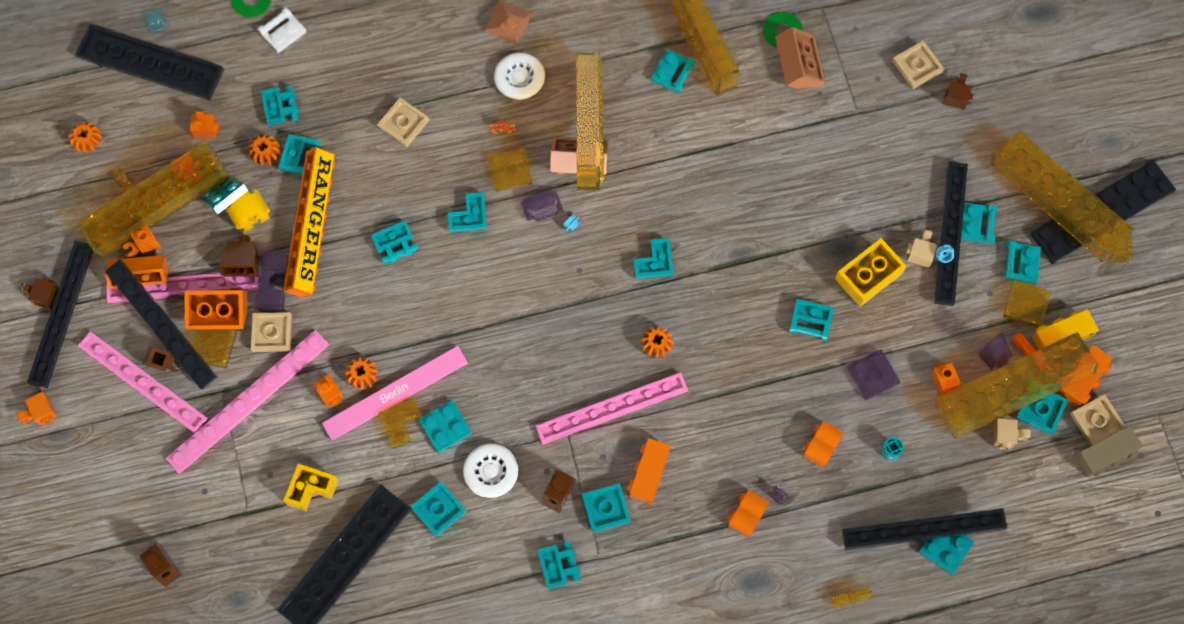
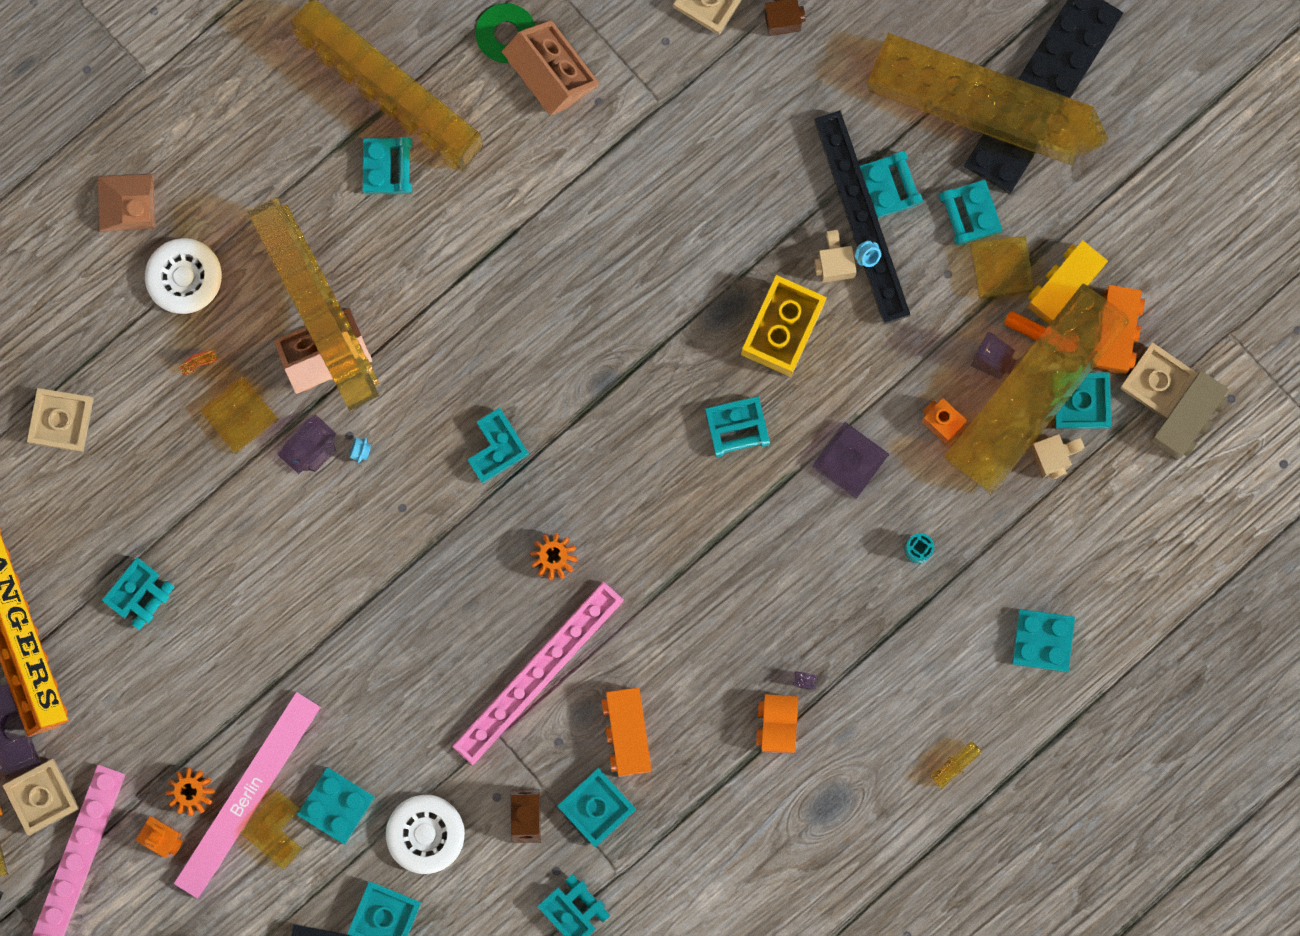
camera: 30 degrees left, 10 degrees up
(473, 218) = (226, 505): teal plate -> none
(823, 444) = (830, 586): orange brick -> none
(924, 529) = (1006, 634): black plate -> none

